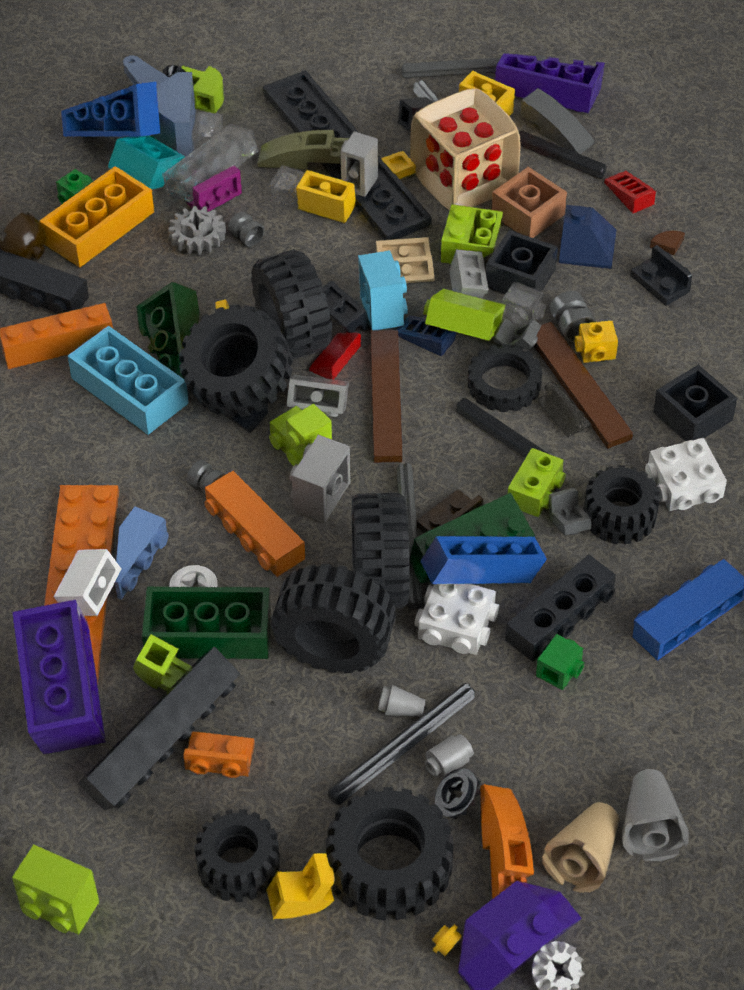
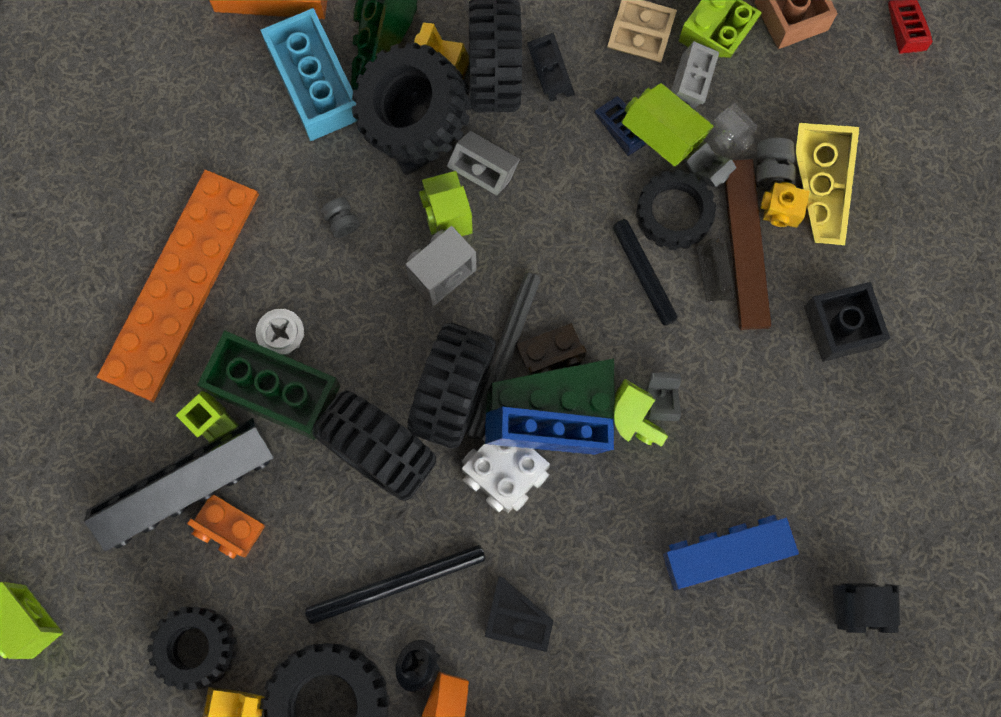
camera: 20 degrees right, 25 degrees up
(58, 677) = (98, 406): dark purple brick -> none
(89, 580) = (174, 302): white brick -> none
(138, 541) = (244, 267): medium blue slope -> none
(254, 524) = (362, 287): orange brick -> none
(336, 355) = (529, 116): red slope -> none
(382, 290) = (598, 63): medium azure brick -> none
(386, 396) = (552, 184): reddish brown tile -> none
(399, 702) = (411, 542): light grey cone -> none
(448, 756) = (428, 620): light grey brick -> none
(522, 261) = (752, 81): black brick -> none
(529, 728) = (517, 619): none -> black wing
(536, 481) = (648, 347): lime brick -> none
(545, 525) = (629, 412): none -> lime brick
(560, 662) = (579, 561): green brick -> none
(575, 592) = (648, 476): black brick -> none
(587, 238) = (835, 71): dark blue slope -> none
(616, 297) = (827, 170): none -> light yellow wedge
(623, 486) = (736, 392): black tyre -> none
(663, 276) = (891, 147): black bracket -> none
(668, 241) = (917, 104): reddish brown tile -> none
(686, 474) = (799, 397): white brick -> none

